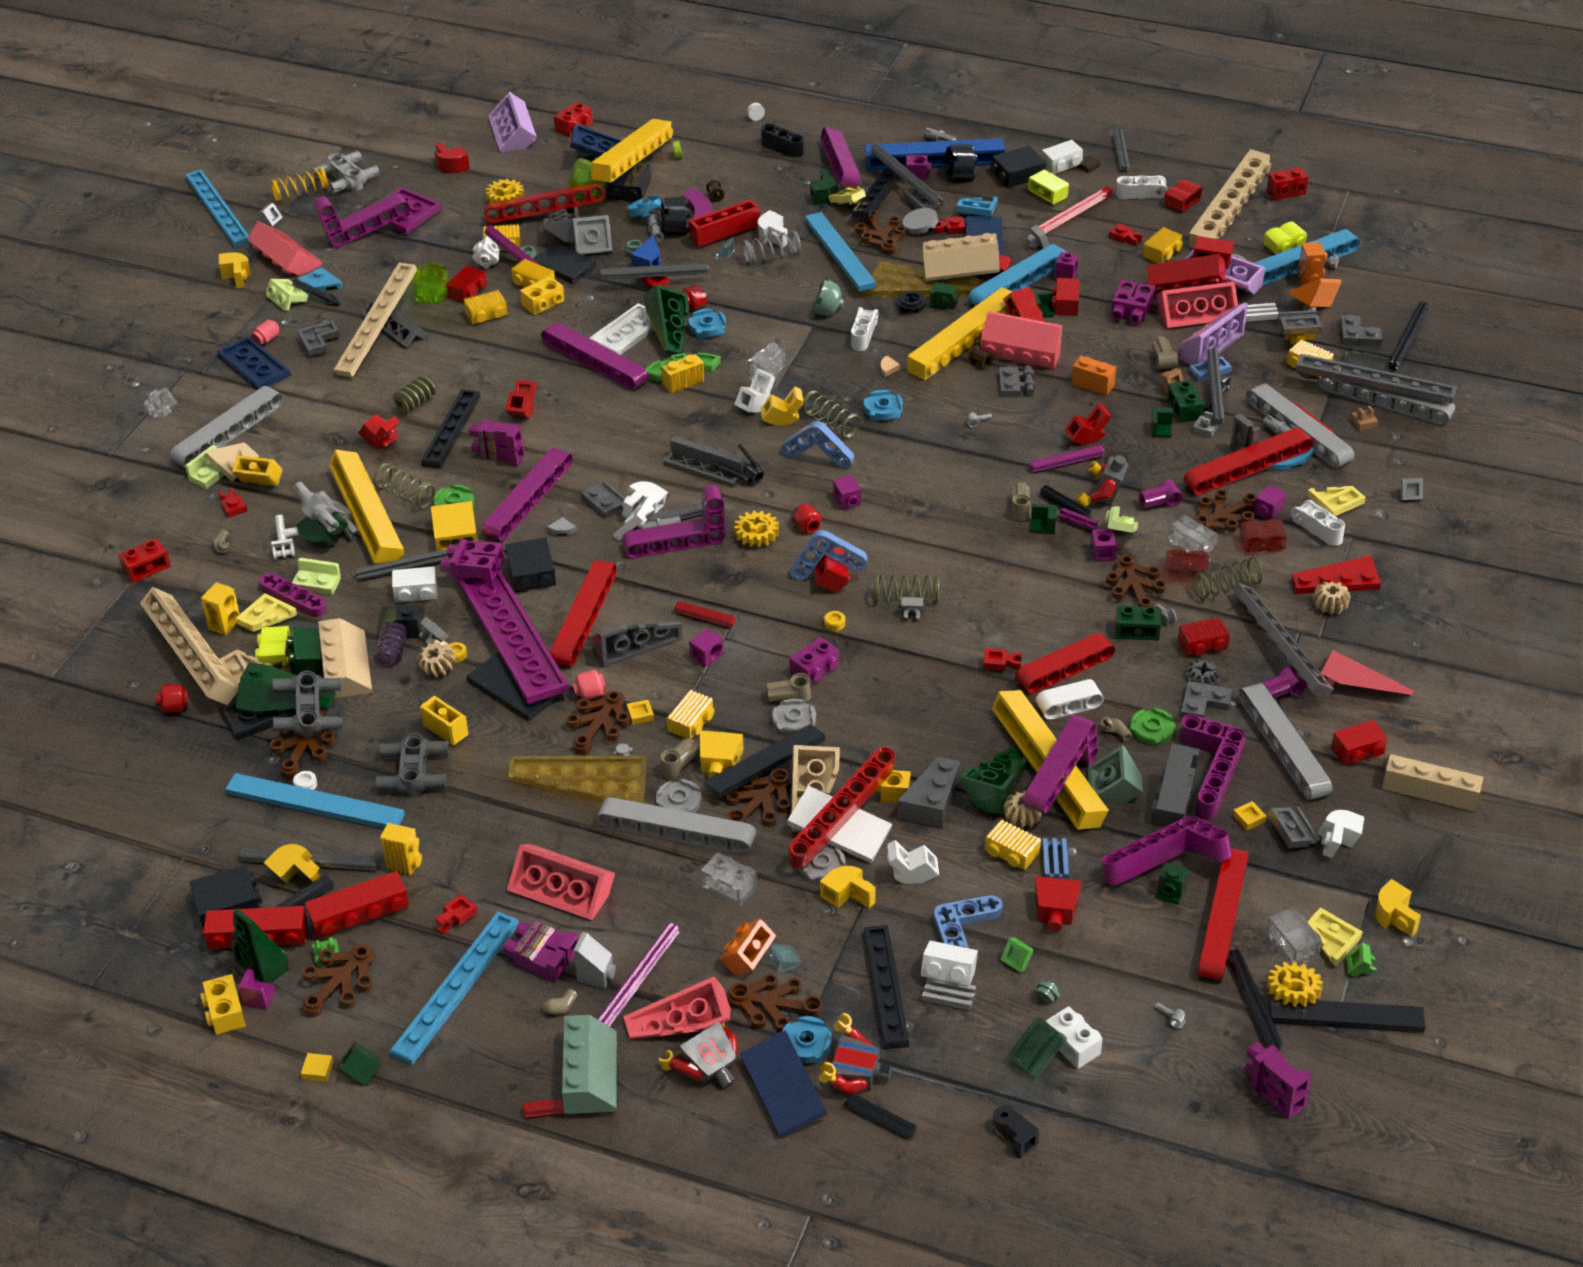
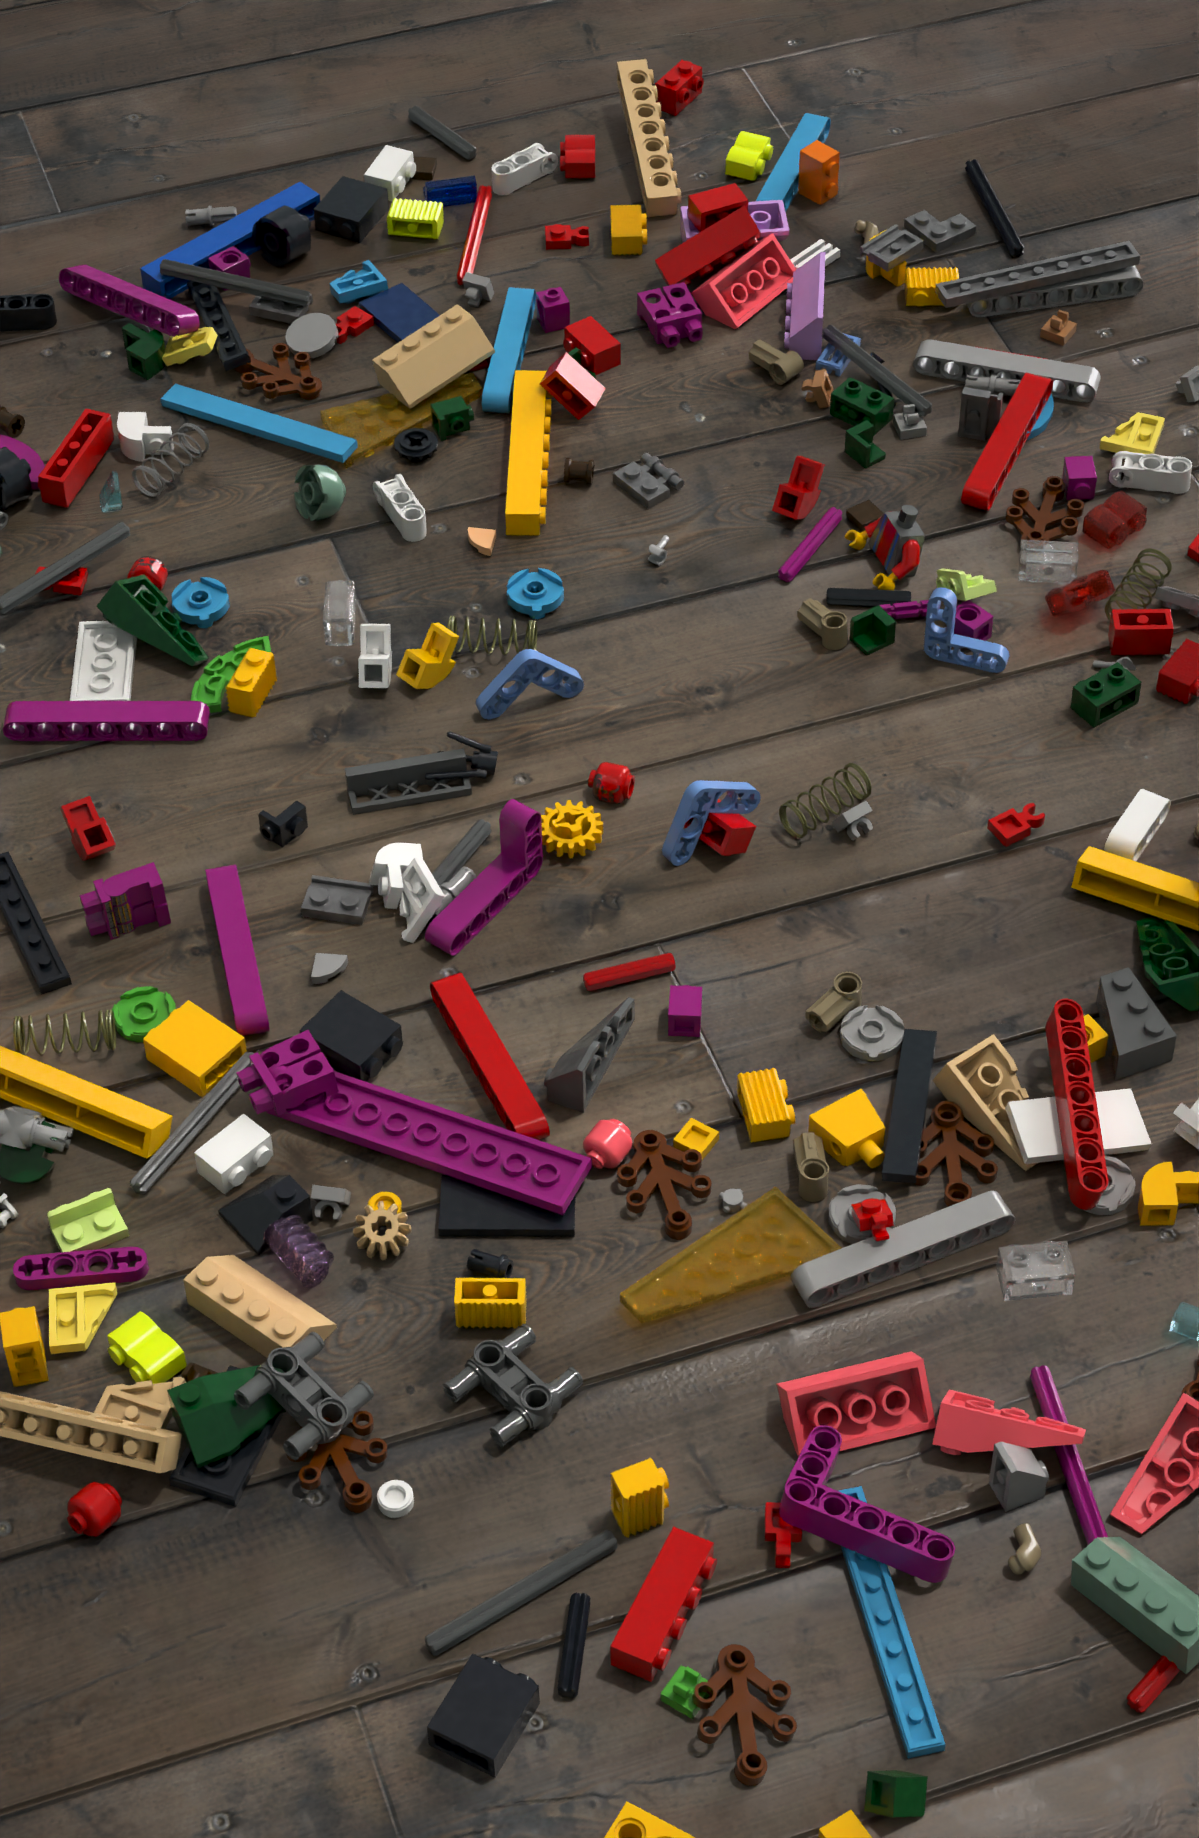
camera: 40 degrees left, 5 degrees up
(255, 993) = (668, 1800): magenta panel -> none
(256, 950) = (626, 1751): dark green wedge -> none
(281, 925) = (575, 1724): red brick -> none
(289, 860) = (517, 1606): yellow brick -> none
(304, 650) = (201, 1329): dark green brick -> none
(313, 801) = (438, 1516): dark azure tile -> none
(471, 708) = (490, 1264): none -> black pin
(475, 907) = (854, 1523): none -> magenta beam
(541, 949) = (938, 1497): magenta hips -> none
(612, 930) = (974, 1425): none -> coral wedge
(619, 449) = (285, 826): none -> black bracket
(647, 254) = (23, 552): blue slope -> none
(673, 797) = (873, 1216): none -> red plate
(747, 946) = (1154, 1336): orange brick -> none
(815, 660) = (825, 950): magenta brick -> none
(834, 621) = (782, 889): yellow tile -> none
(847, 492) = (622, 723): magenta brick -> none
(1022, 340) = (612, 424): coral slope -> none
(1065, 663) = (1085, 787): red beam -> none
(1075, 547) = (946, 638): none -> medium blue beam
(1085, 181) = (451, 191): none -> clear blue panel
(1093, 375) = (732, 427): orange brick -> none
(1128, 566) = (1016, 635): reddish brown plant -> none
(1166, 493) = (962, 528): magenta piece -> none
(1197, 599) = (1140, 631): none -> red brick
(1317, 293) = (861, 205): orange slope -> none

